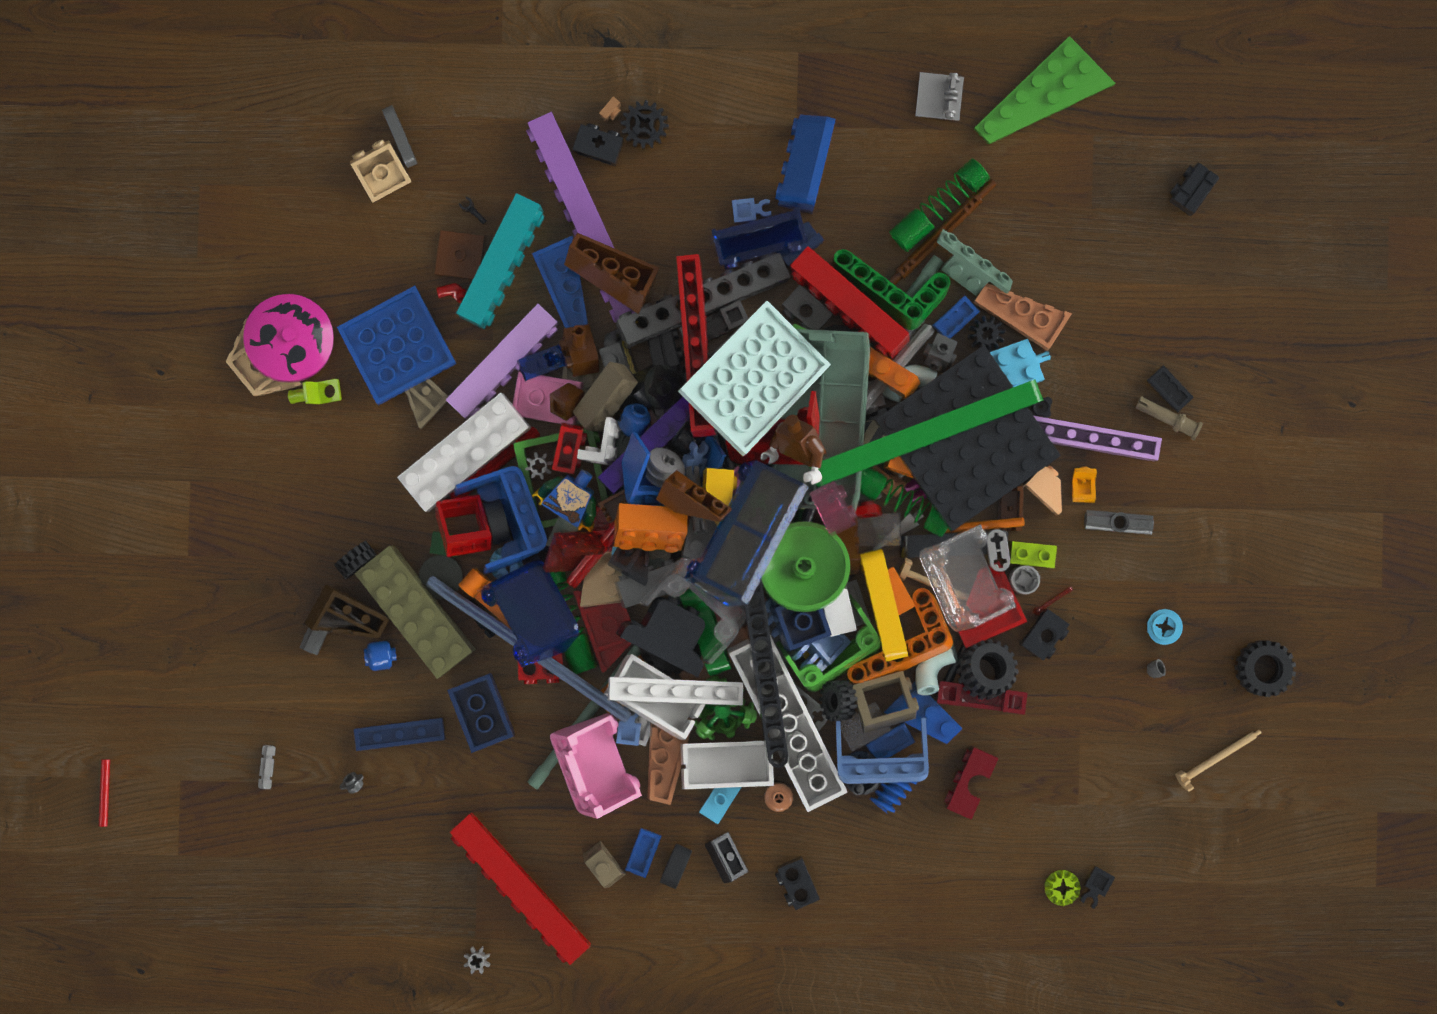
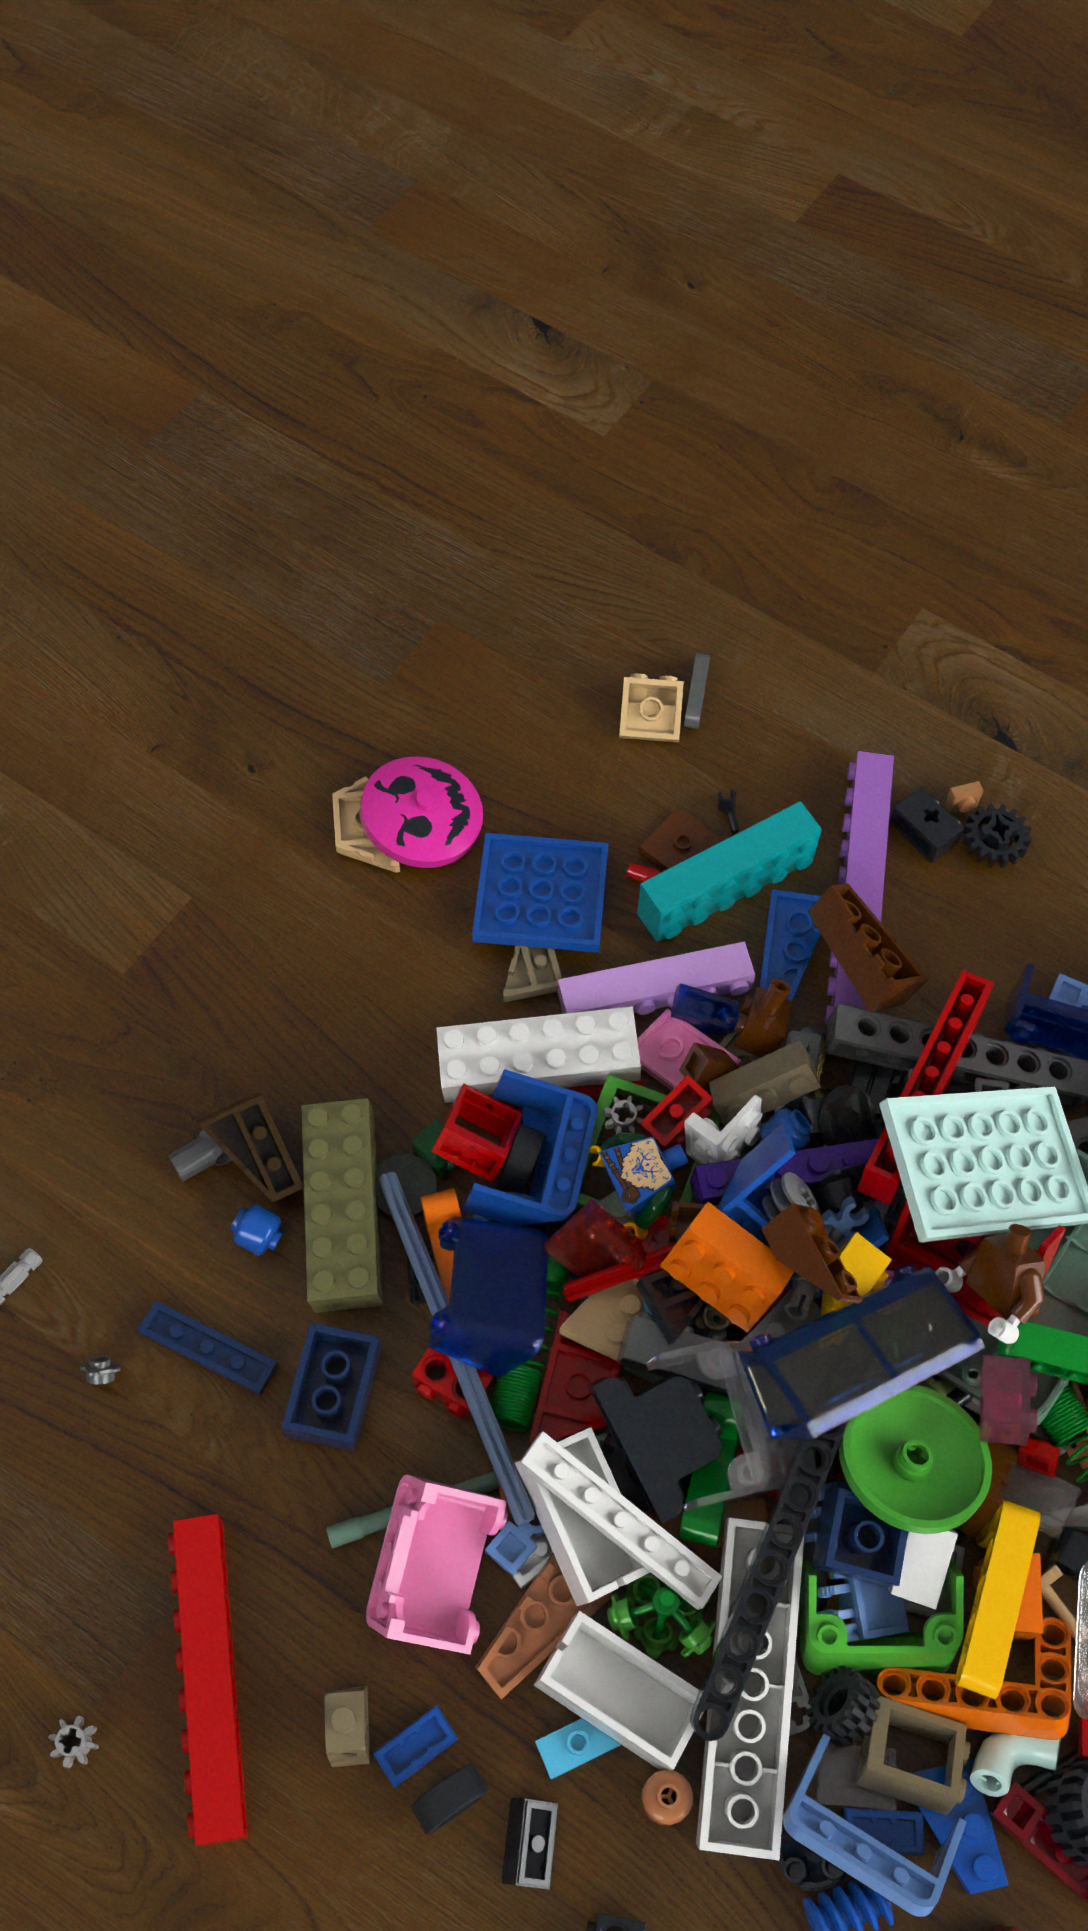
camera: 35 degrees right, 25 degrees down
(315, 393) = (408, 886): lime bracket -> none
(355, 559) = (312, 1089): black tyre -> none

